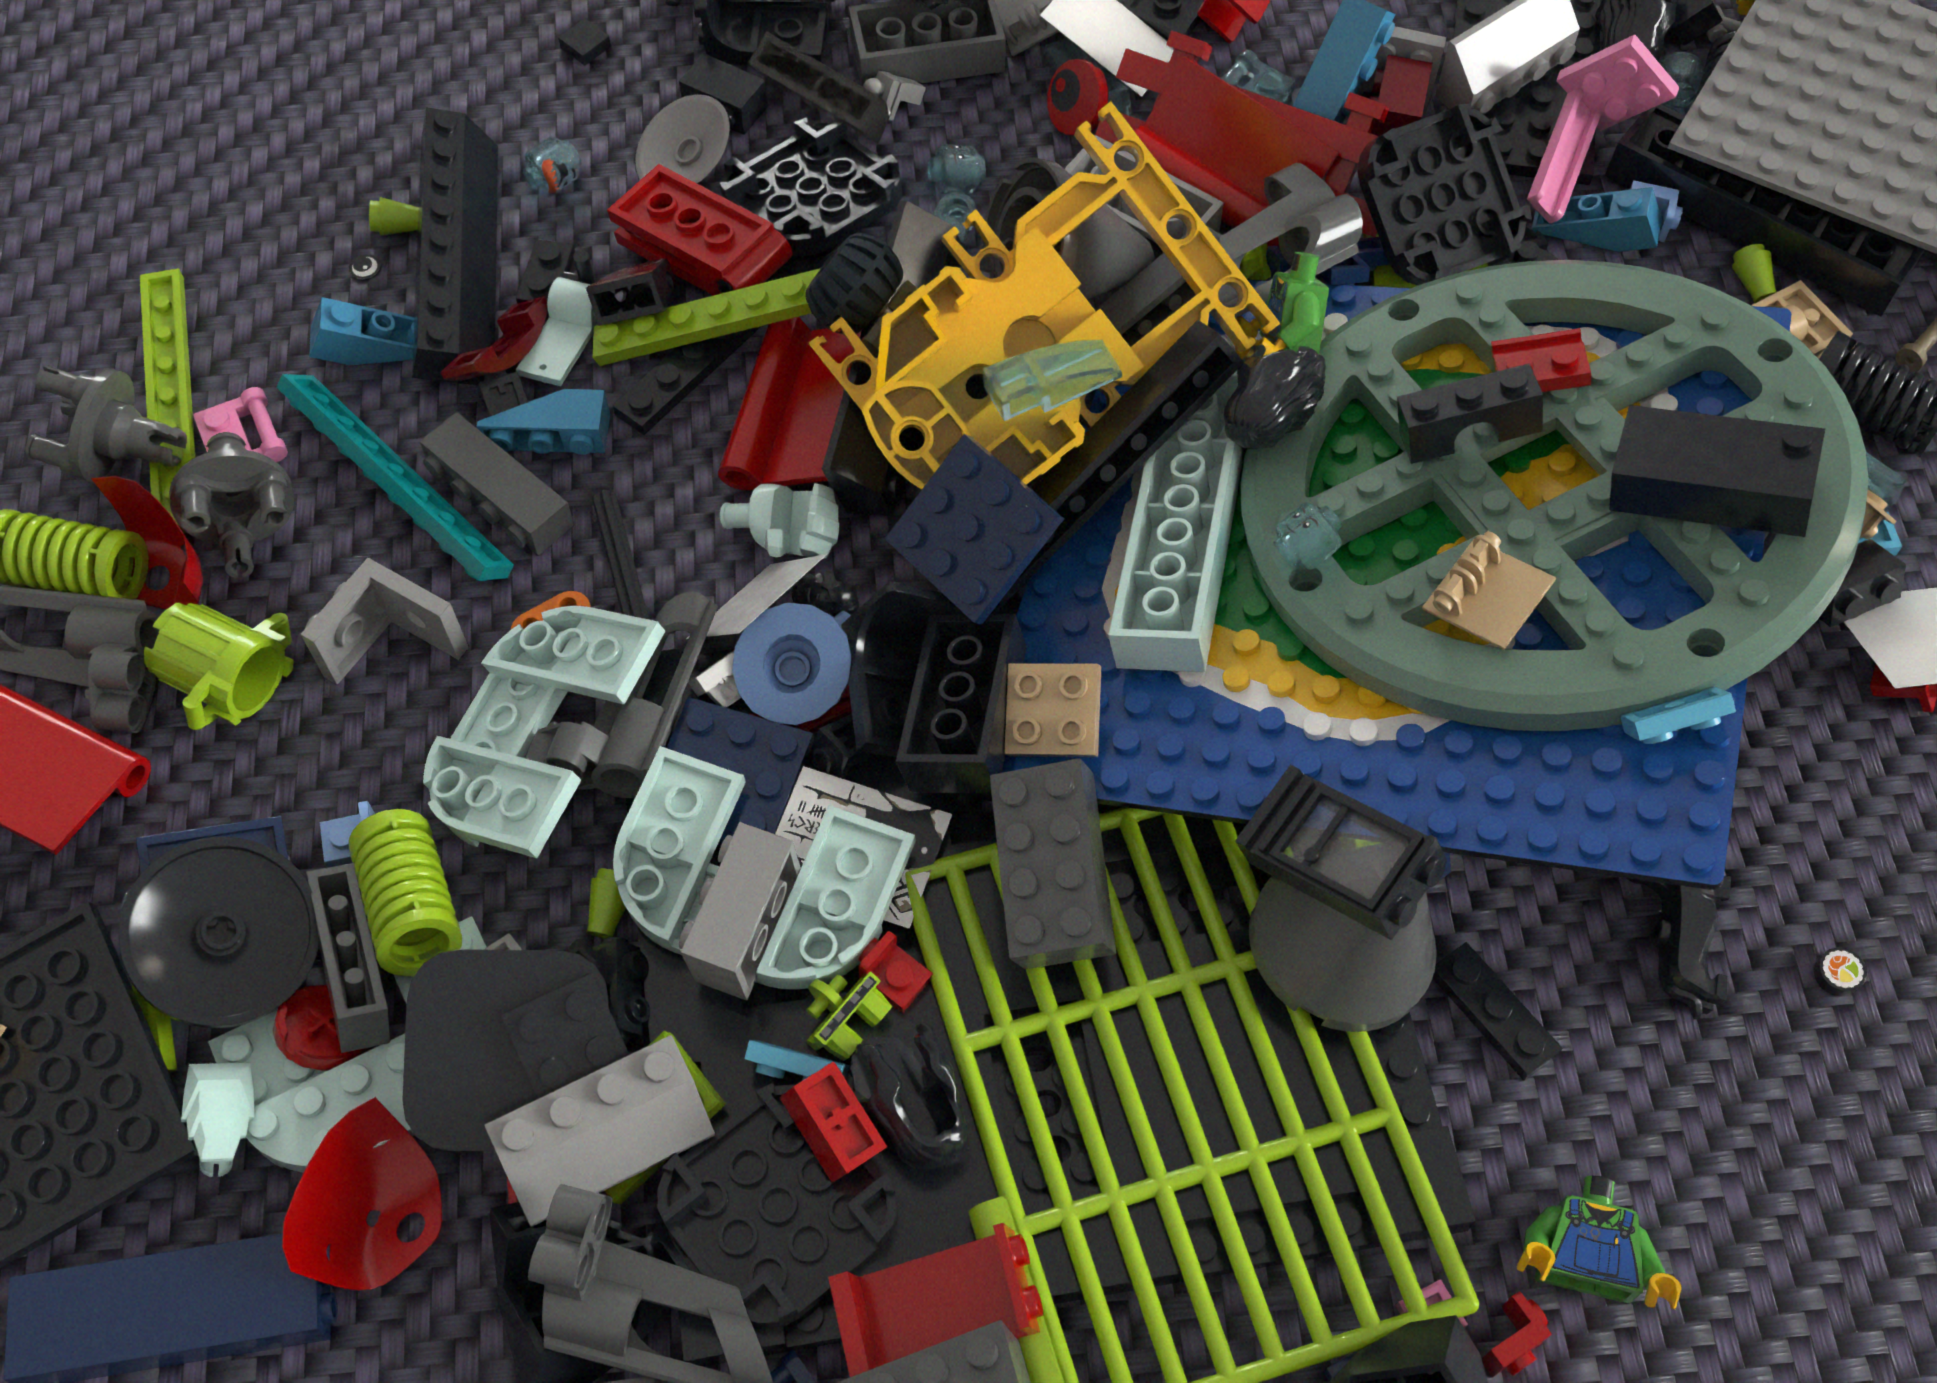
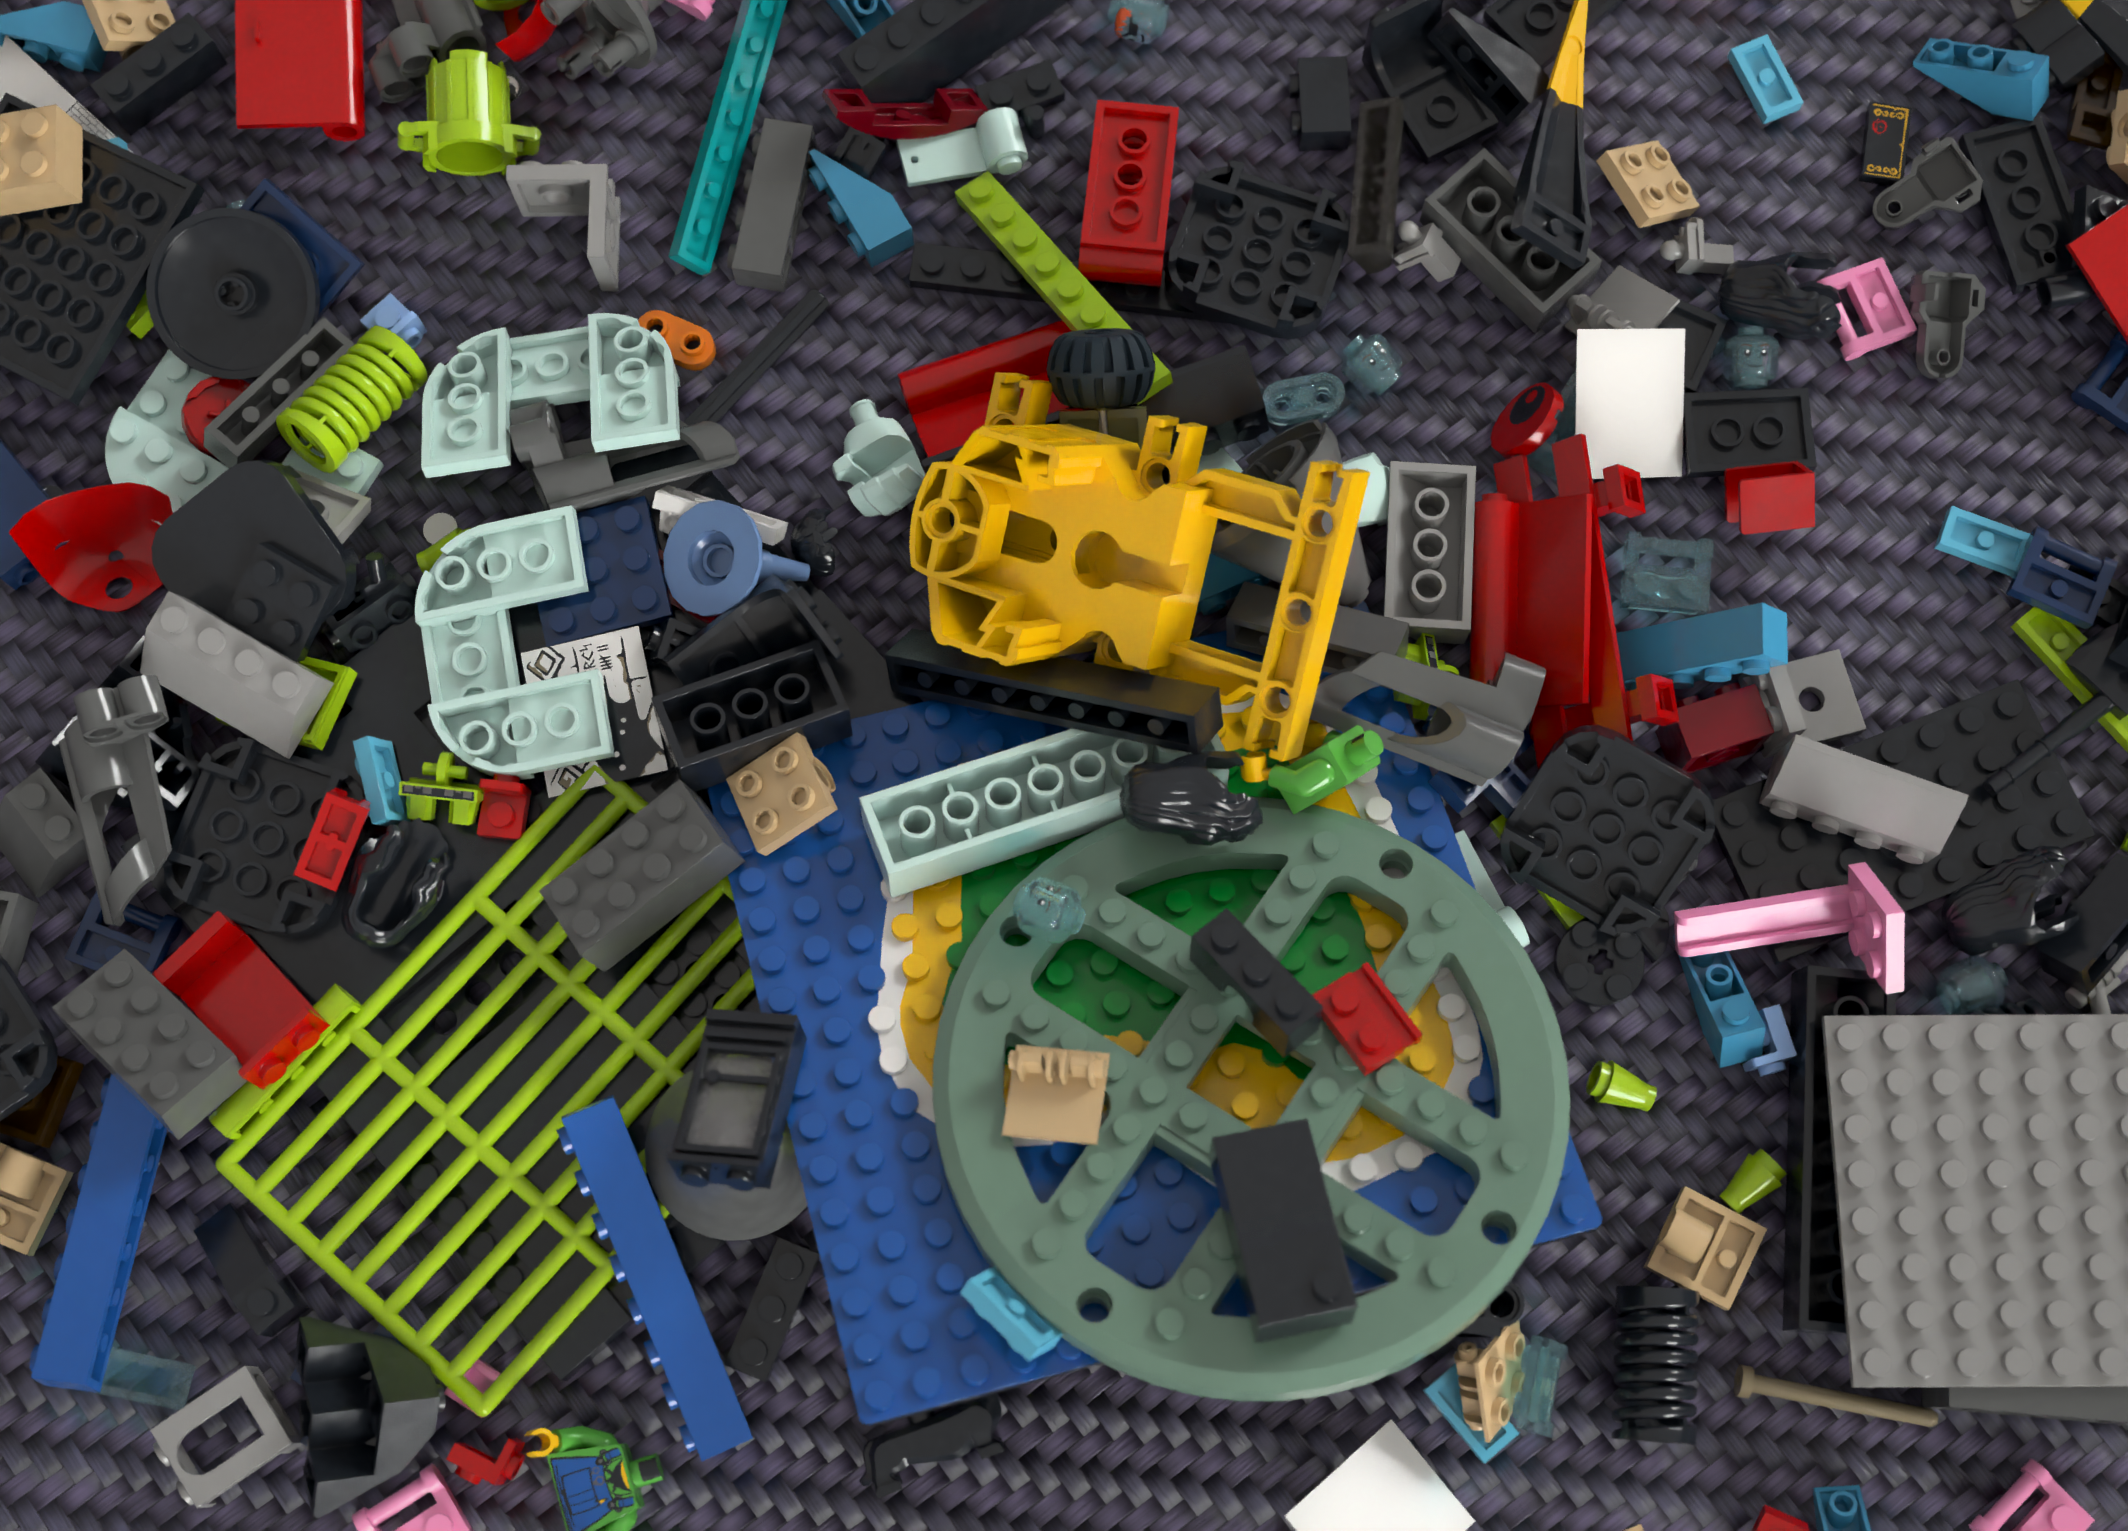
camera: 60 degrees right, 15 degrees up
(217, 1111) = (111, 392): light aqua connector -> none
(573, 906) = (438, 526): none -> white sticker
(645, 288) = (1033, 182): black torso -> none
(685, 138) = (1233, 108): light grey hat -> none
(739, 910) = (454, 660): light grey brick -> none
(759, 595) = (771, 488): white sticker -> none
(973, 529) = (889, 626): dark blue plate -> none
(1049, 376) = (1062, 598): clear light blue slope -> none
(1427, 1068) = (656, 1277): none -> blue brick
(1870, 582) = (1406, 1431): black brick -> none

